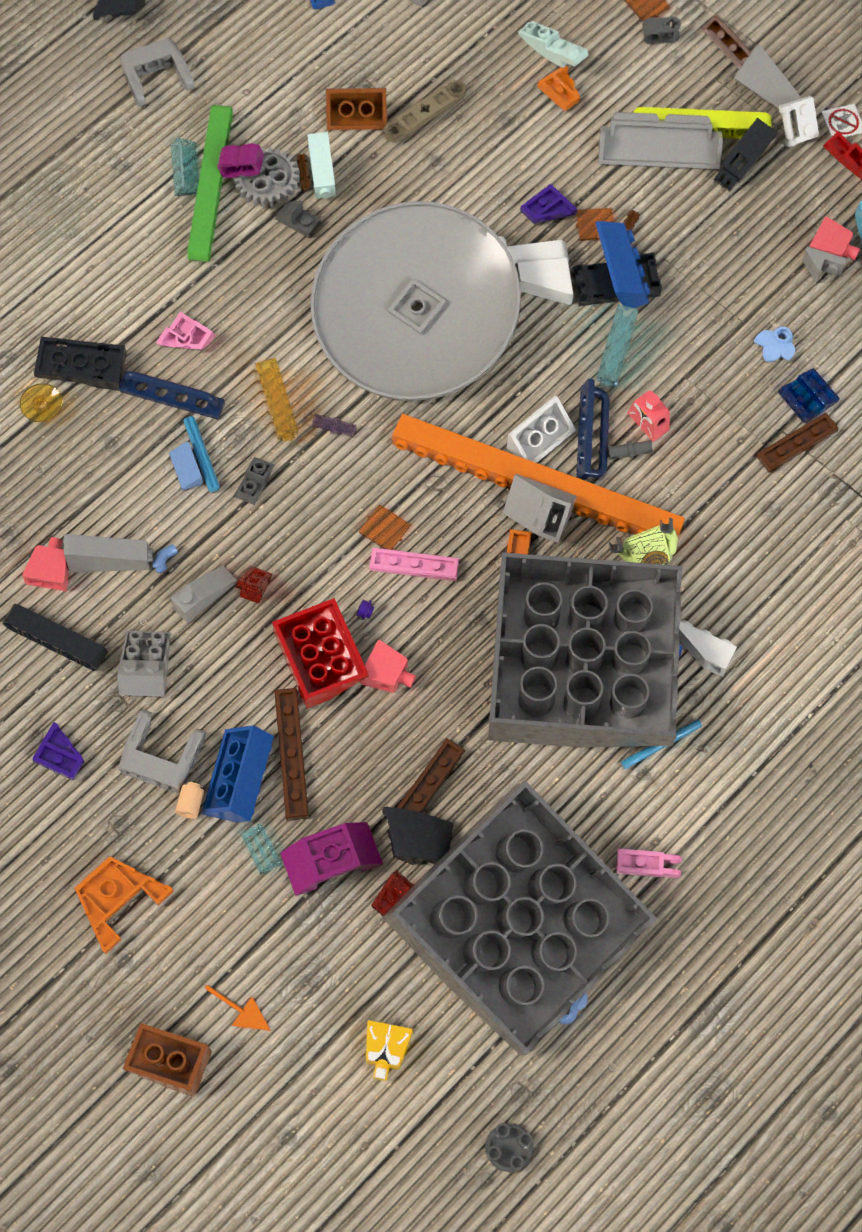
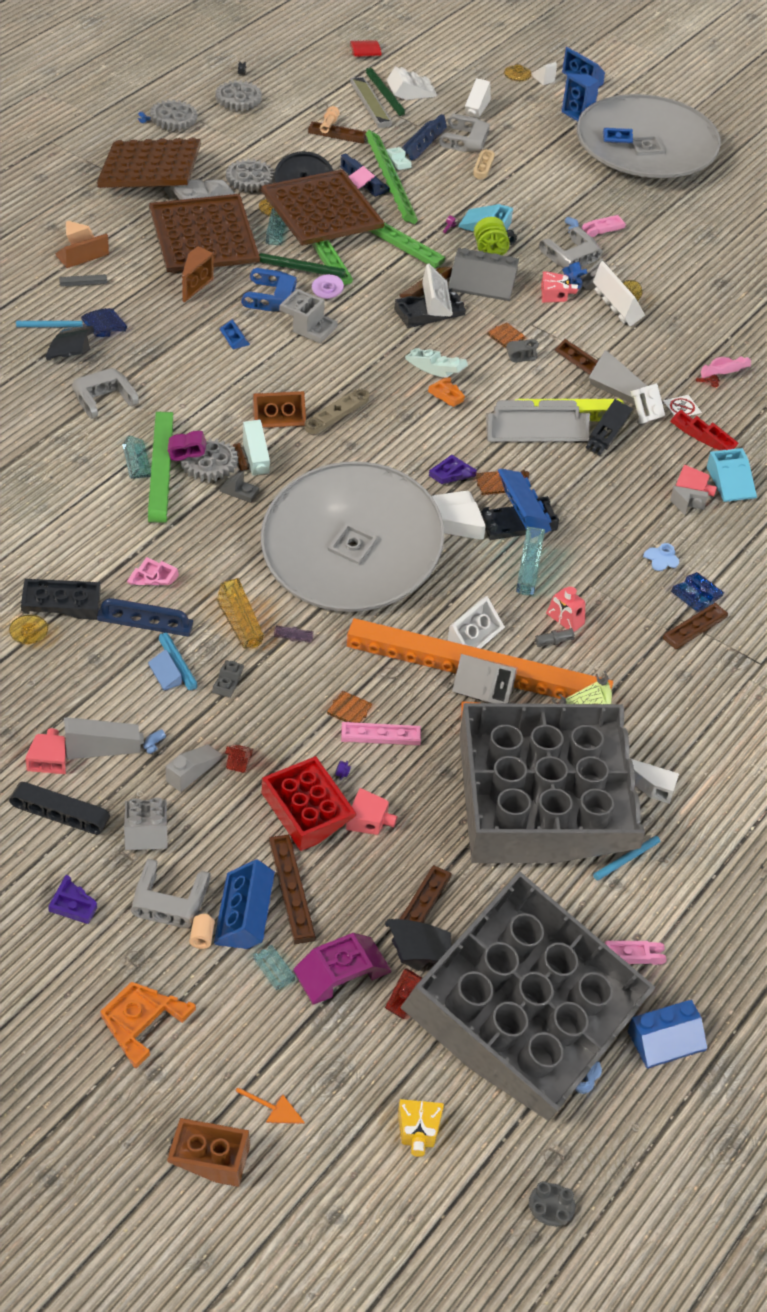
camera: 10 degrees left, 20 degrees down
(585, 431) = (514, 625): dark blue piece -> none
(665, 966) = (668, 1033): none -> slope

